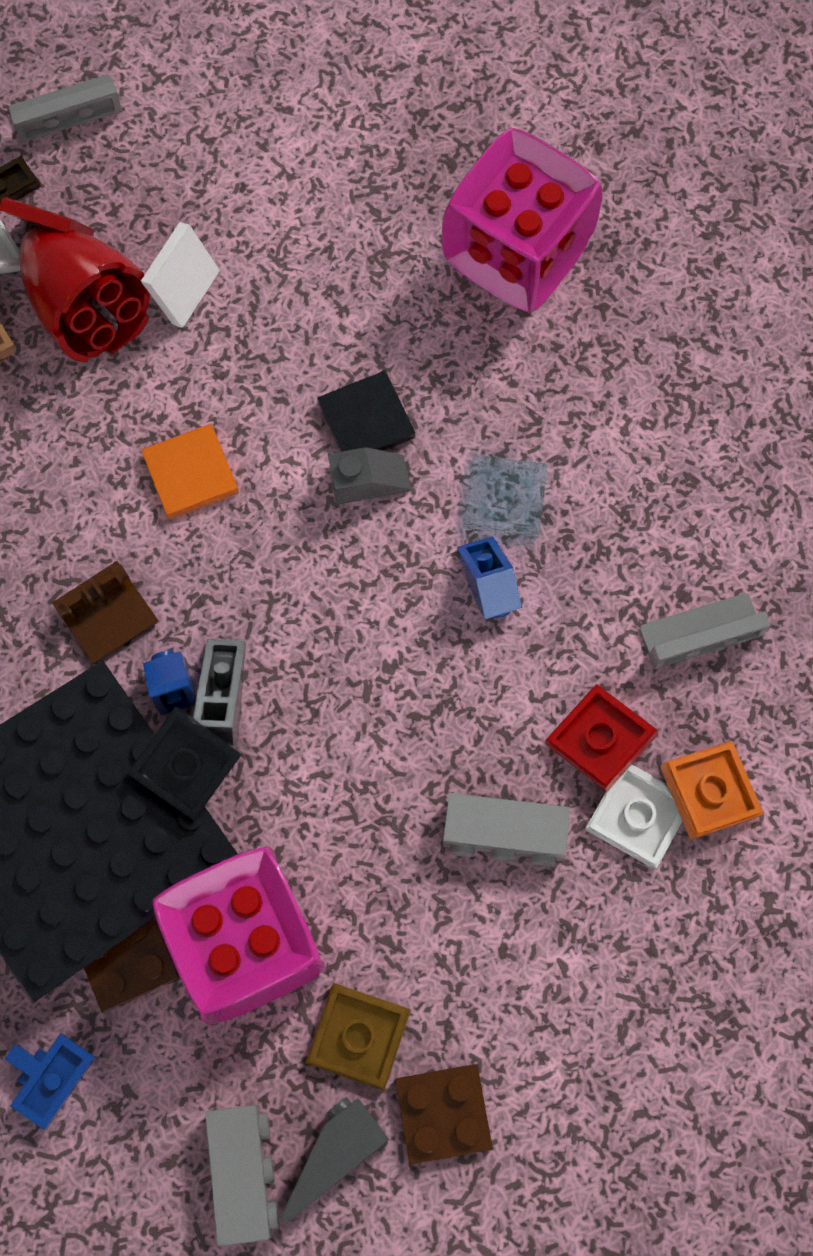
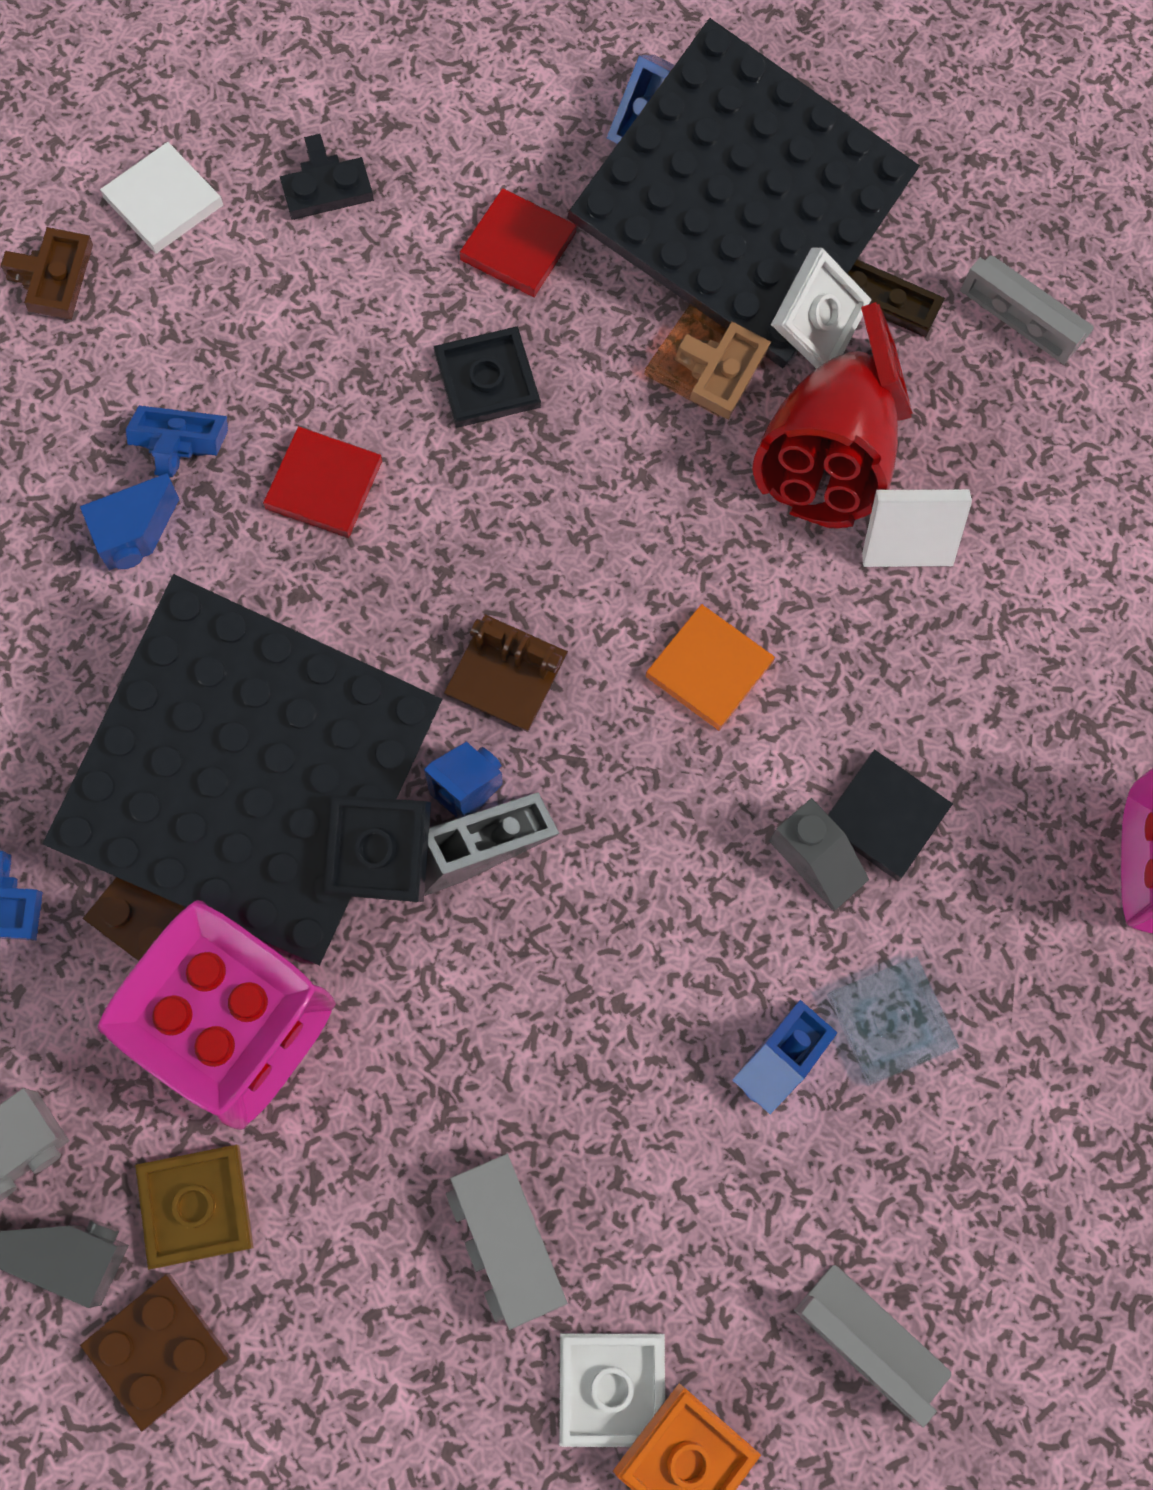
camera: 55 degrees right, 0 degrees up
(601, 737) = (675, 1294): red tile -> none

